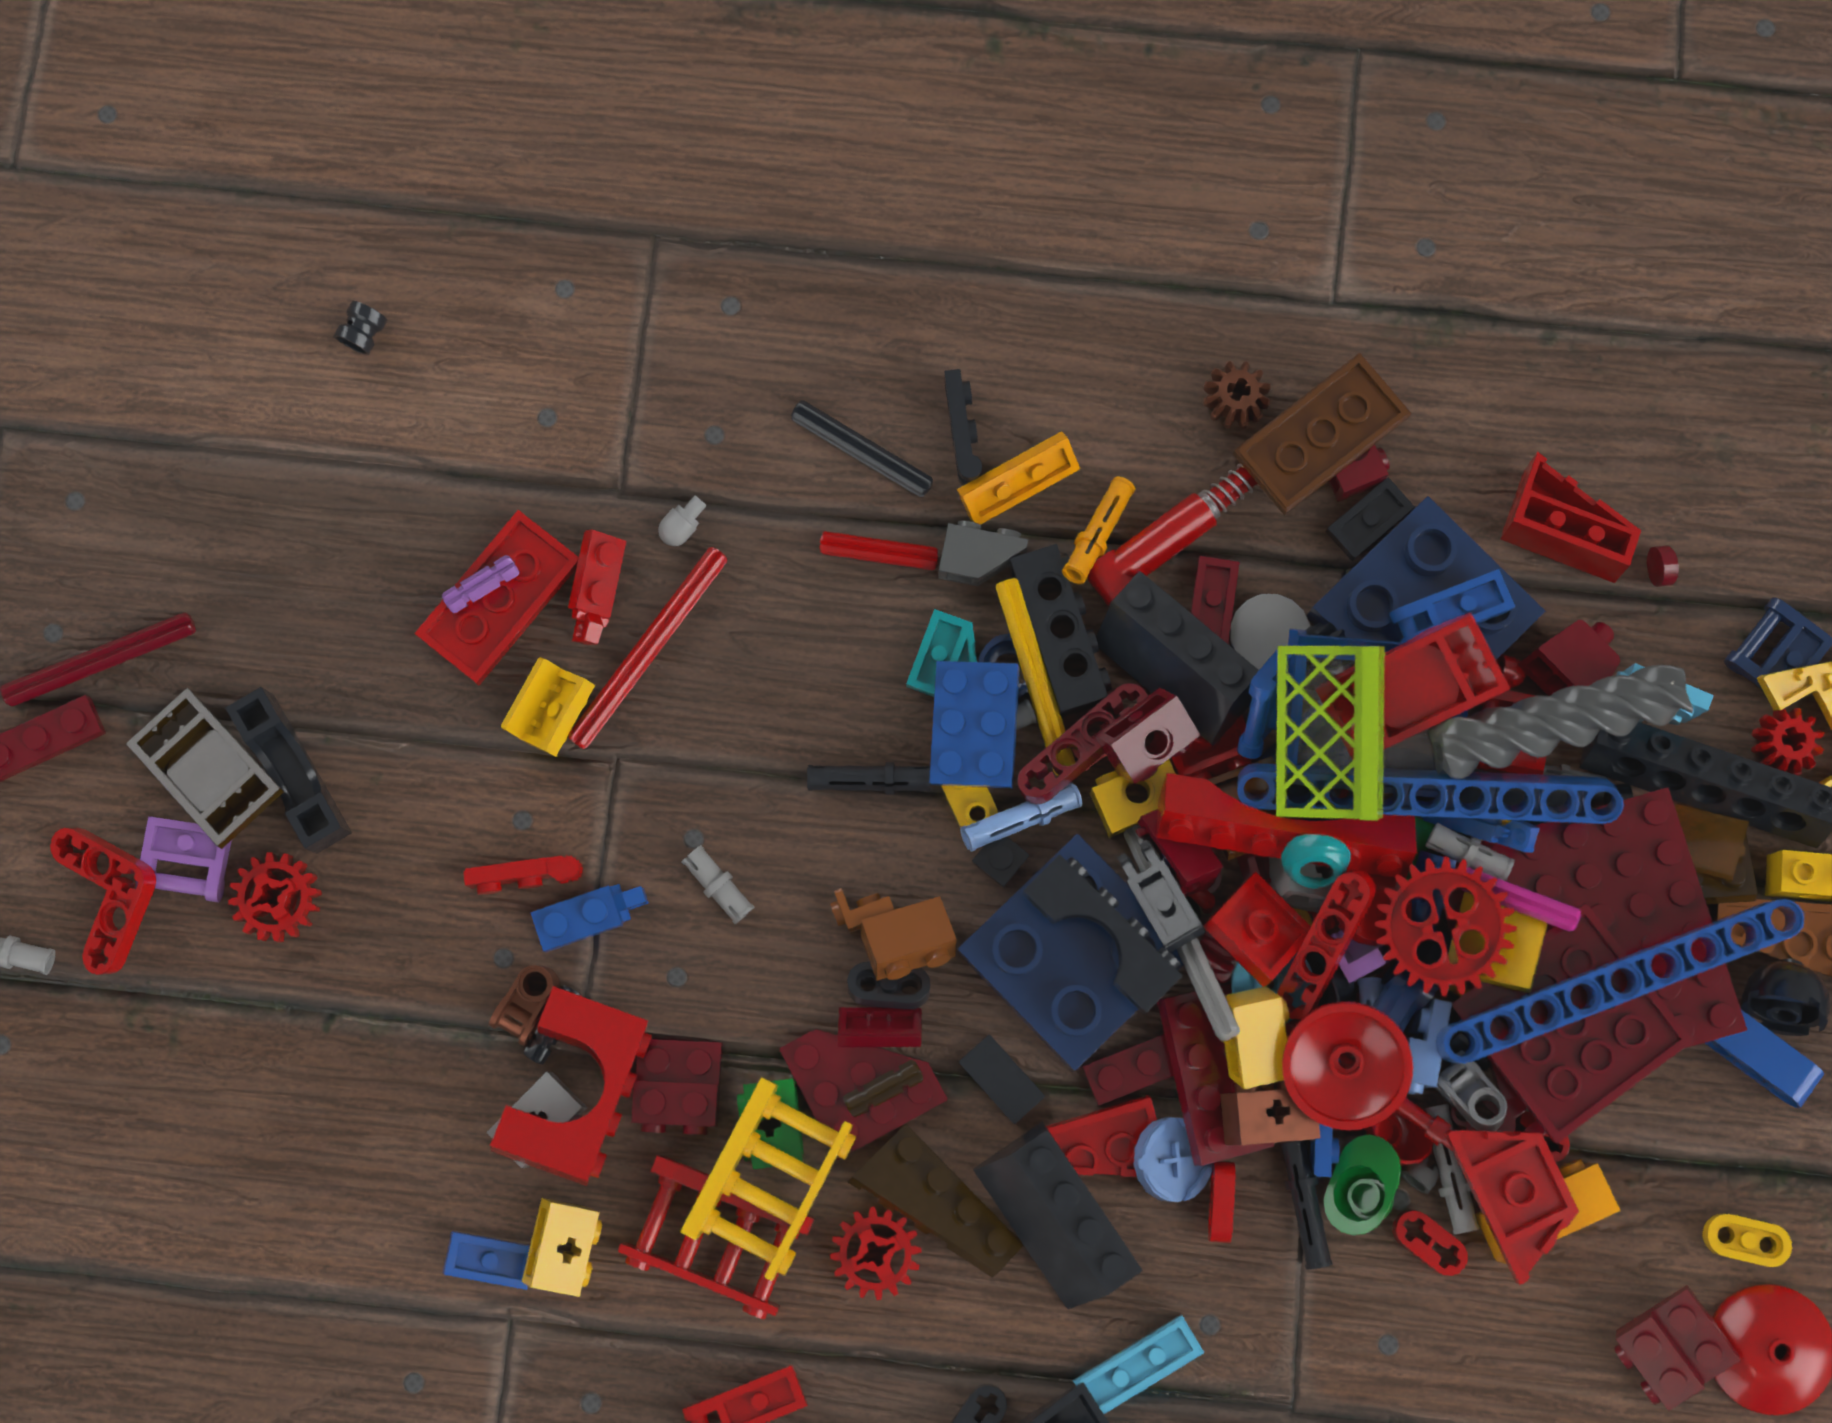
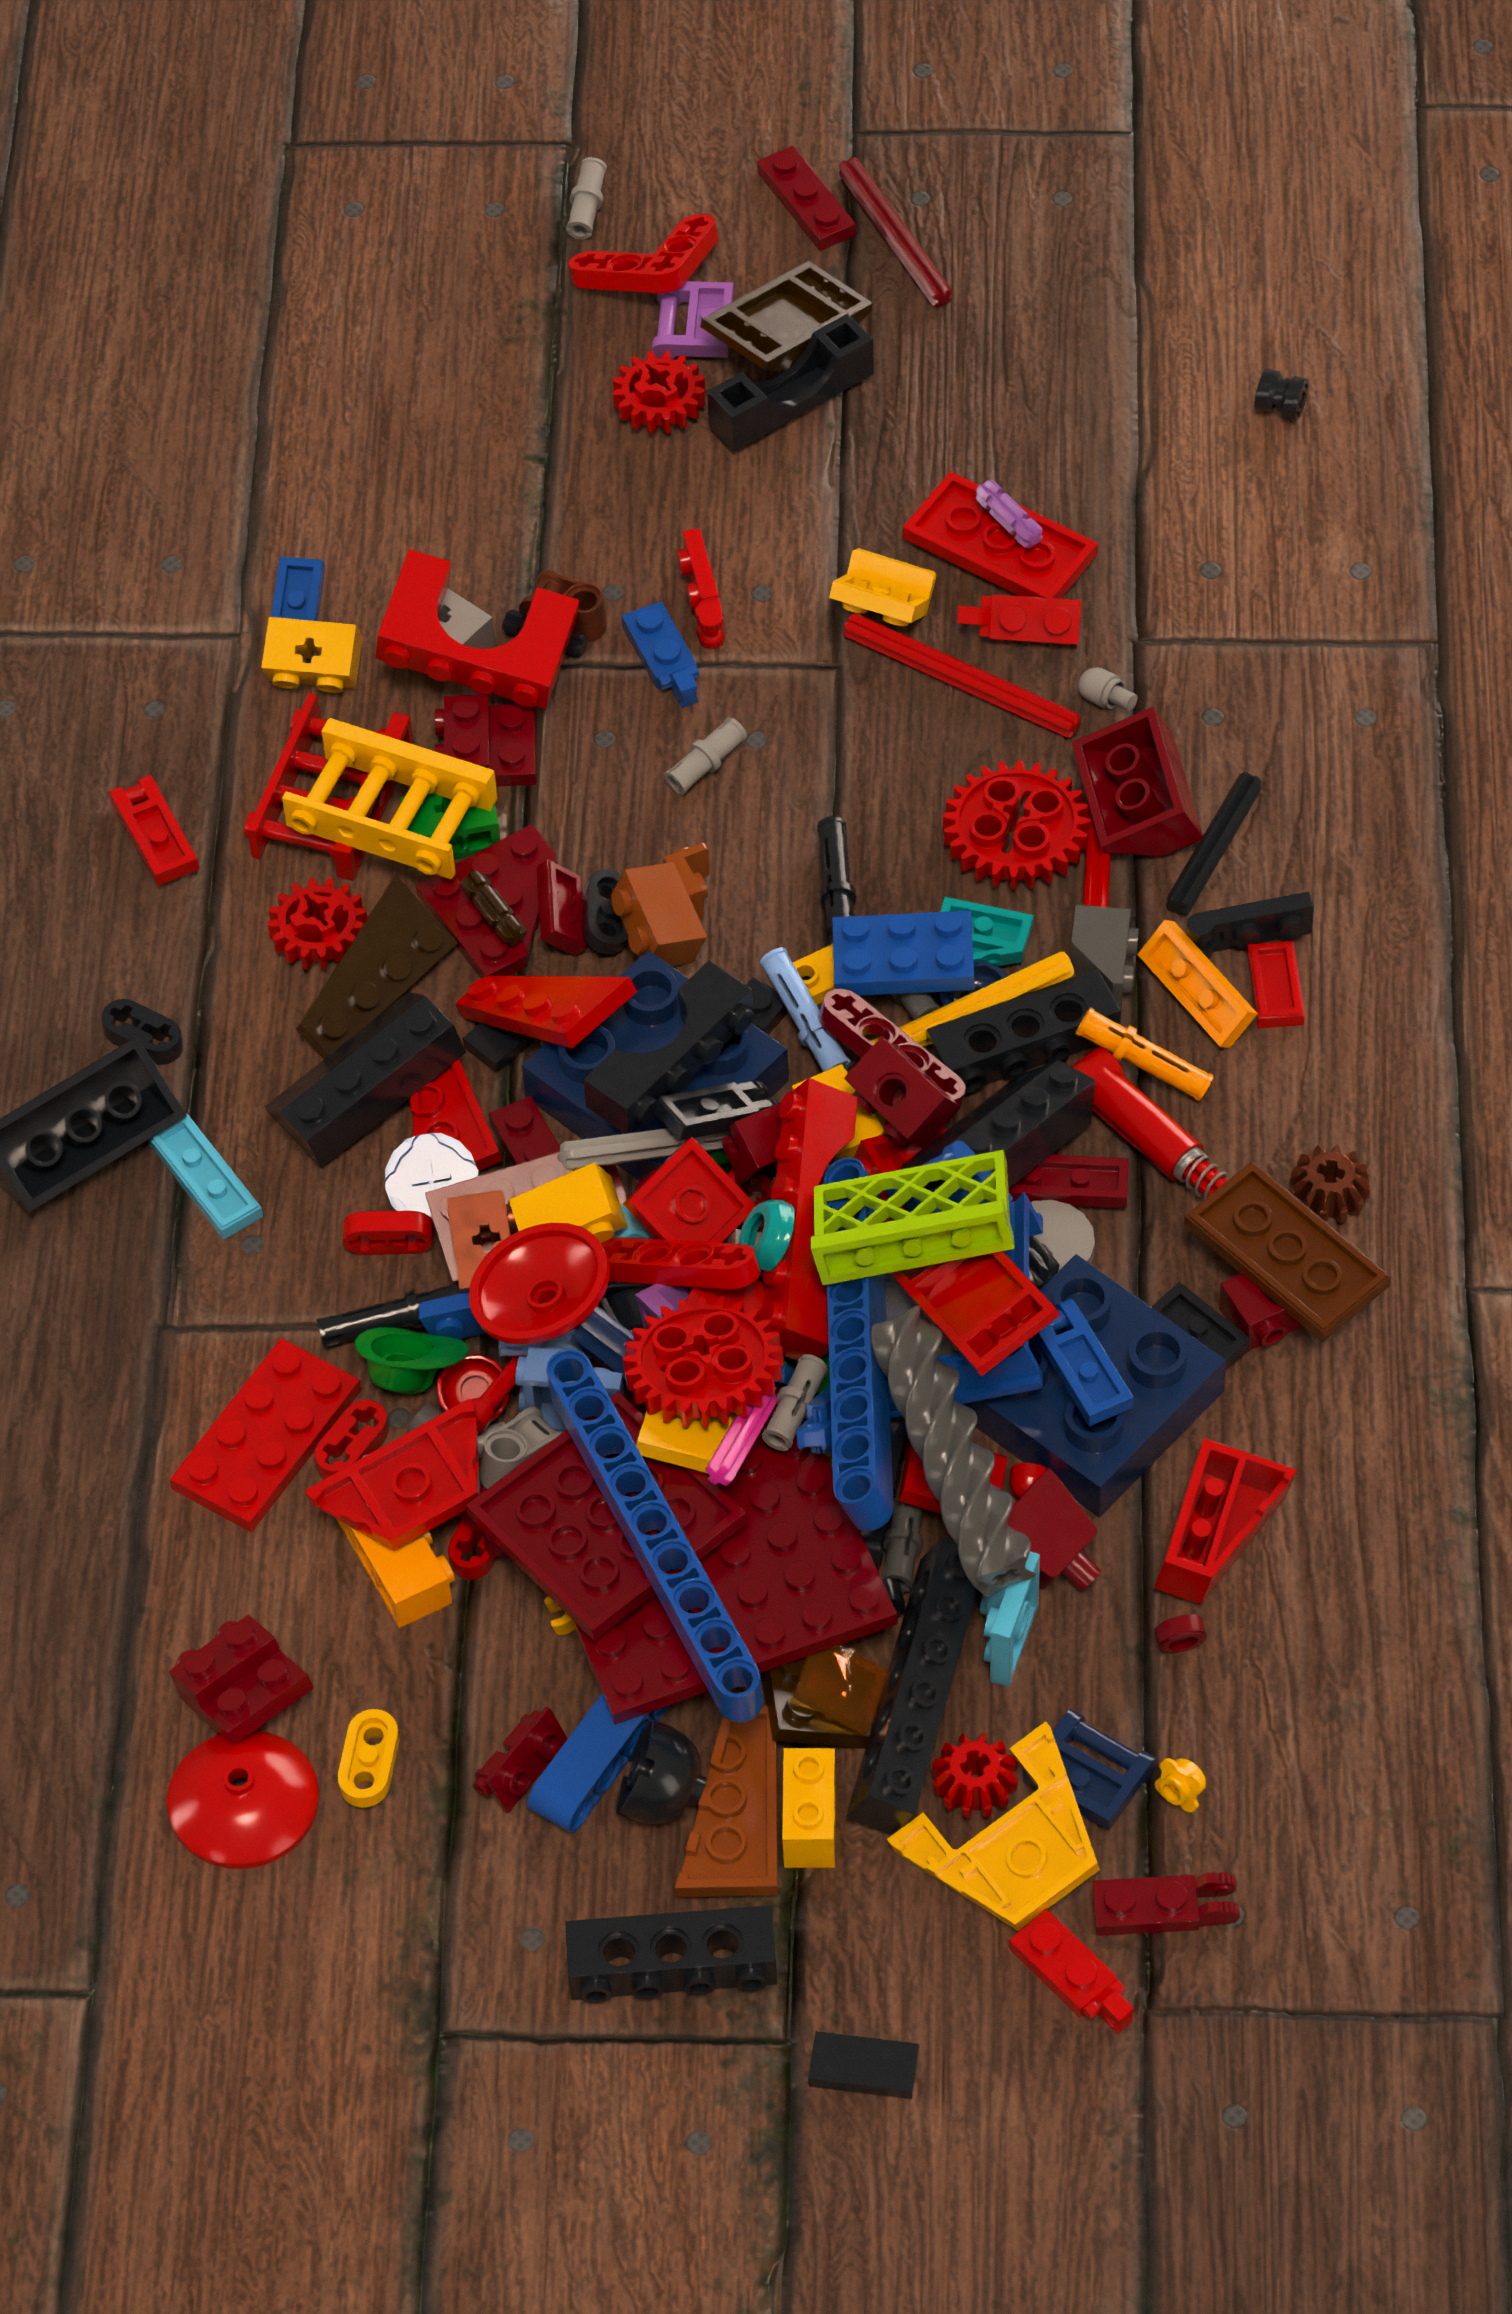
camera: 85 degrees right, 25 degrees down
(807, 505) = (1137, 787): none -> dark red slope
(844, 582) = (989, 808): none -> red gear
(1016, 415) = (1275, 984): none -> red tile
(1021, 1039) = (546, 1006): none -> red wing
(1416, 1318) = (265, 1434): none -> red plate
(1764, 1122) = (530, 1751): none -> dark red hinge
(1799, 581) = (1180, 1783): none -> yellow plate

